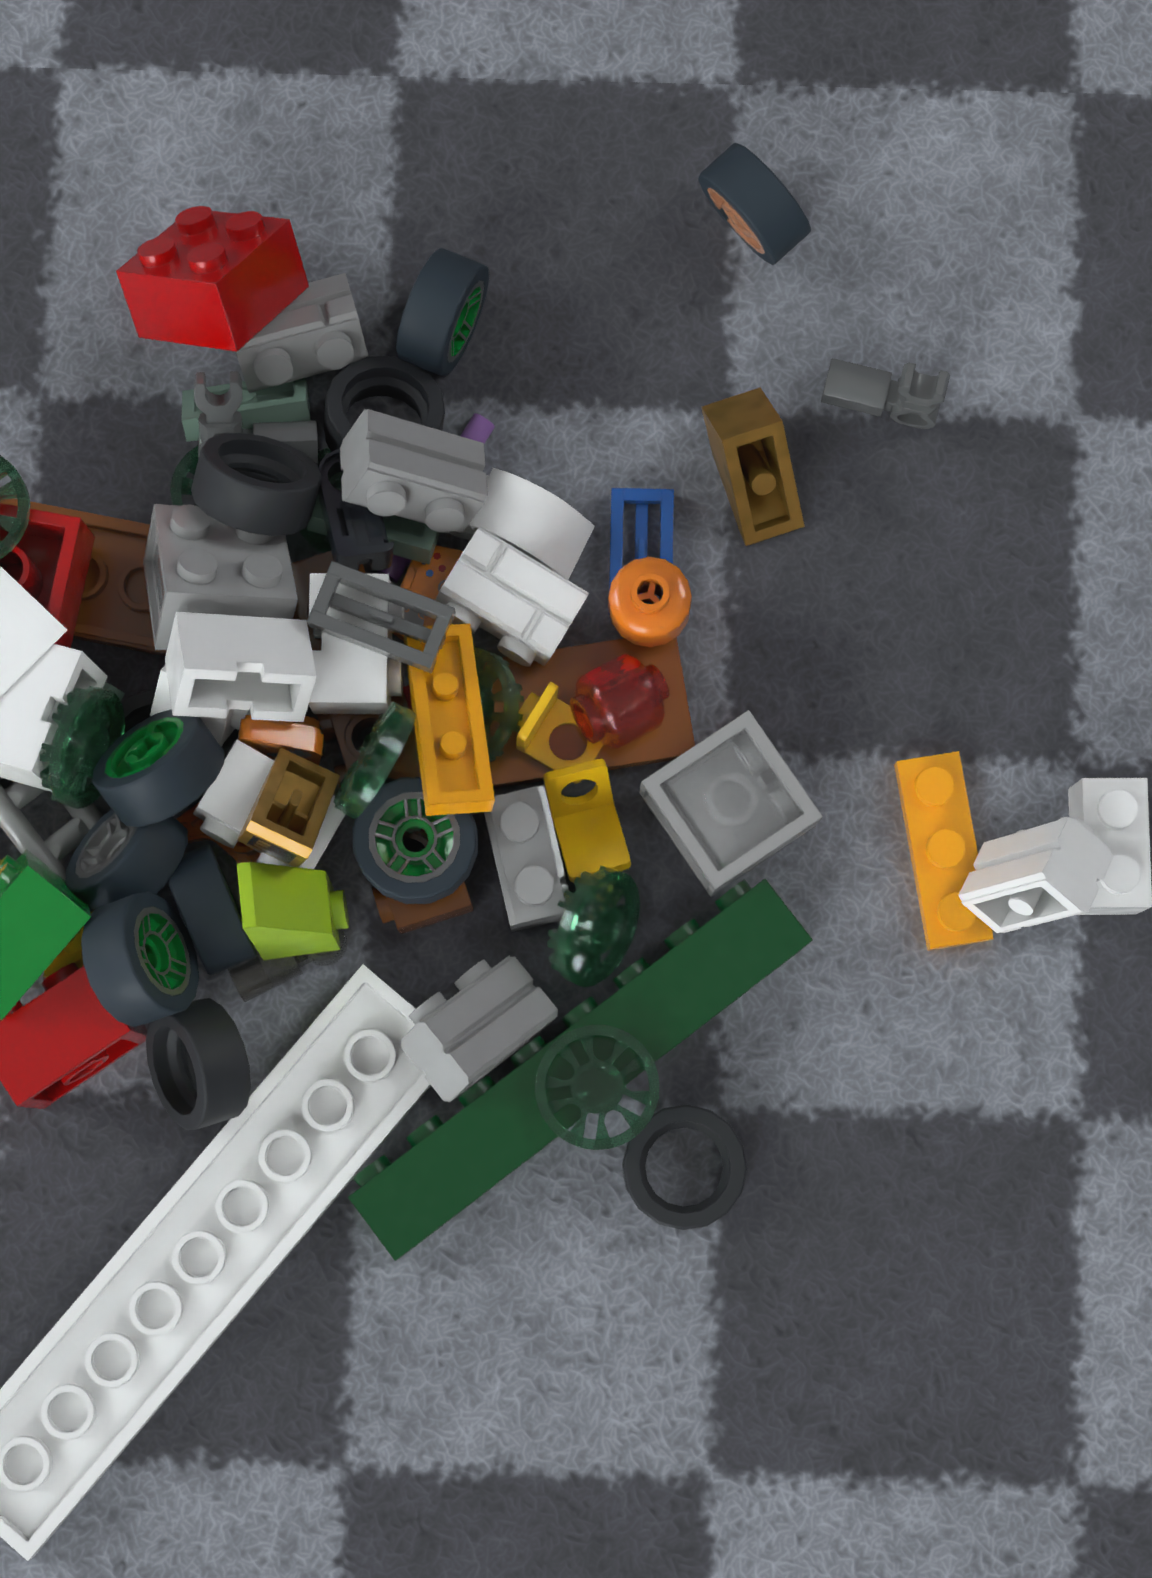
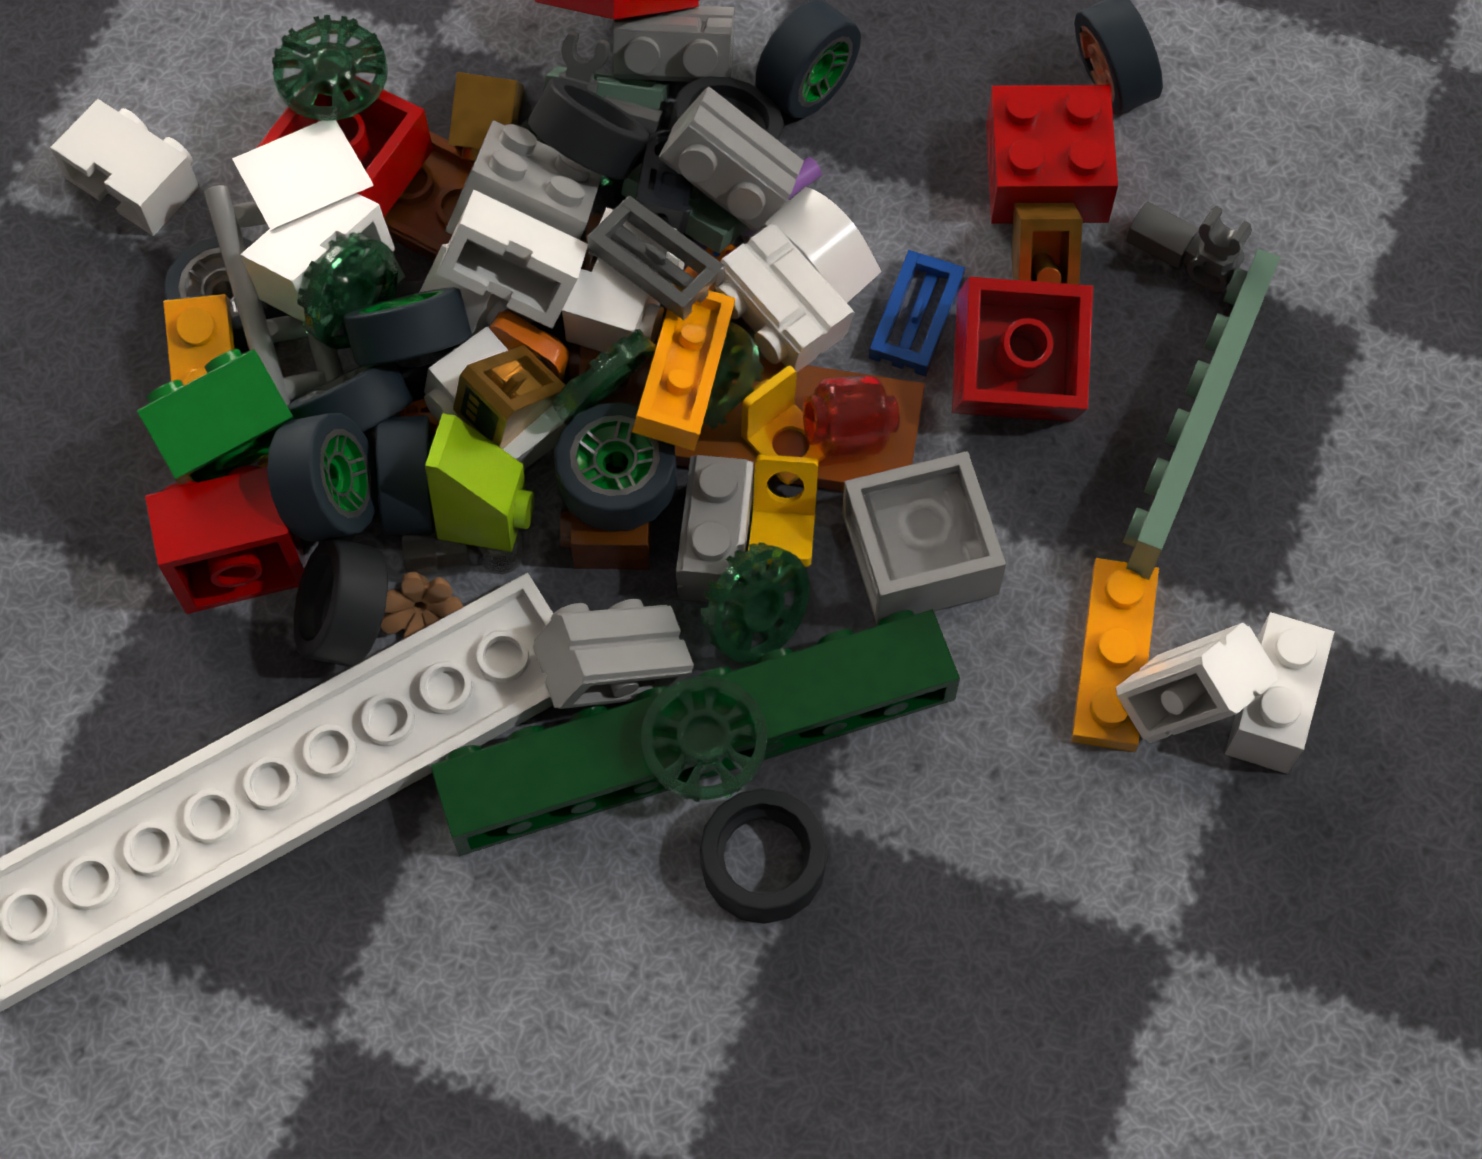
camera: 20 degrees right, 15 degrees down
(132, 477) = (478, 103): none -> pearl gold slope
(272, 1030) = (418, 604): none -> medium nougat plant
(655, 622) = (908, 339): orange head -> none
(719, 334) = (1051, 149): none -> red brick
(763, 574) = (1022, 349): none -> red brick
(951, 602) = (1191, 429): none -> sand green plate

